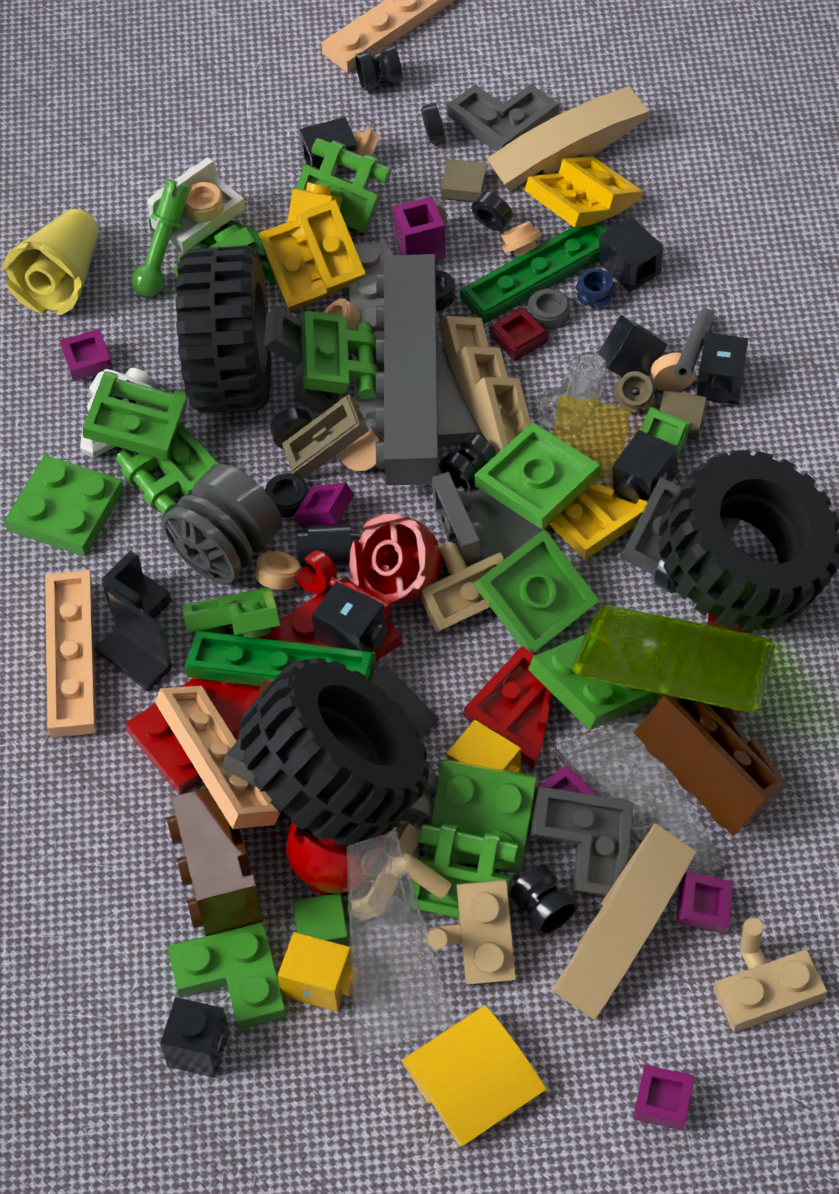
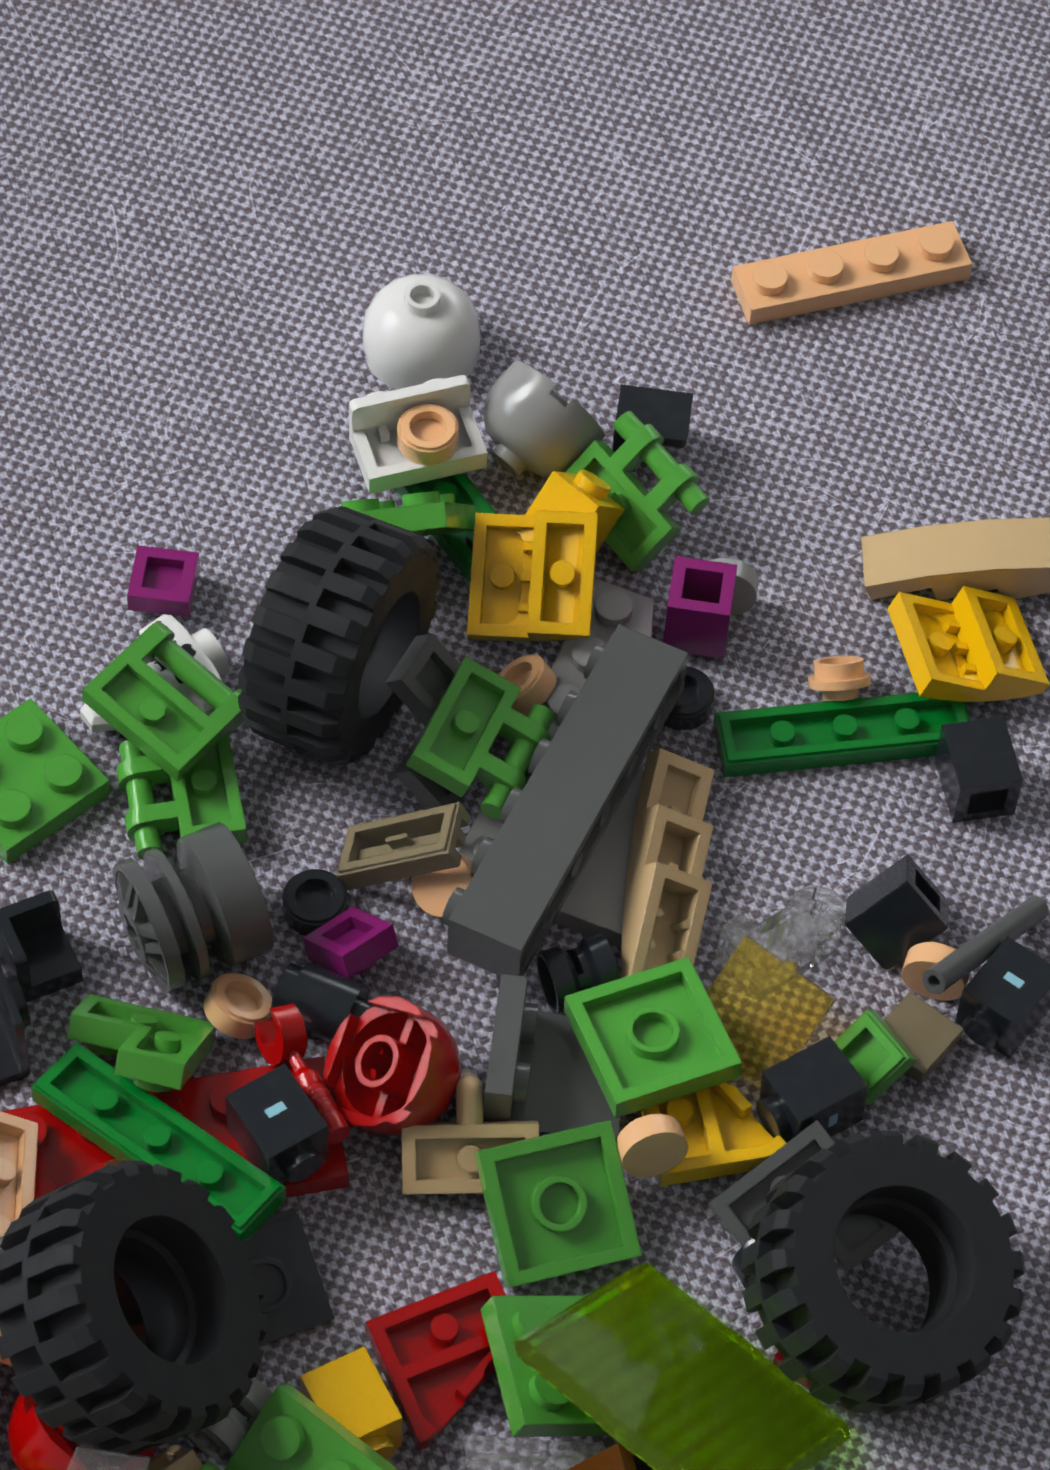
camera: 20 degrees right, 0 degrees up
(53, 263) = (192, 430): light yellow cone -> none
(148, 279) = (365, 439): bright green pin -> none
(156, 150) = (420, 331): none -> white cylinder
(262, 172) = (535, 424): none -> light grey cylinder
(288, 423) = (369, 803): black tile -> none
(366, 141) = (704, 443): light nougat plate -> none
(378, 67) = (801, 339): black wheel -> none
(433, 123) = (816, 453): black tile -> none
(463, 180) = (814, 555): dark tan tile -> none
(491, 211) = (822, 619): black tile -> none
(497, 122) = (912, 495): dark grey plate -> none
(518, 334) = (760, 814): dark red tile -> none
(549, 308) = (823, 797): dark grey tile -> none
(574, 533) = (651, 1145): none -> light nougat tile
(596, 288) = (905, 784): dark blue plate -> none
(639, 381) = (854, 965): dark tan plate -> none

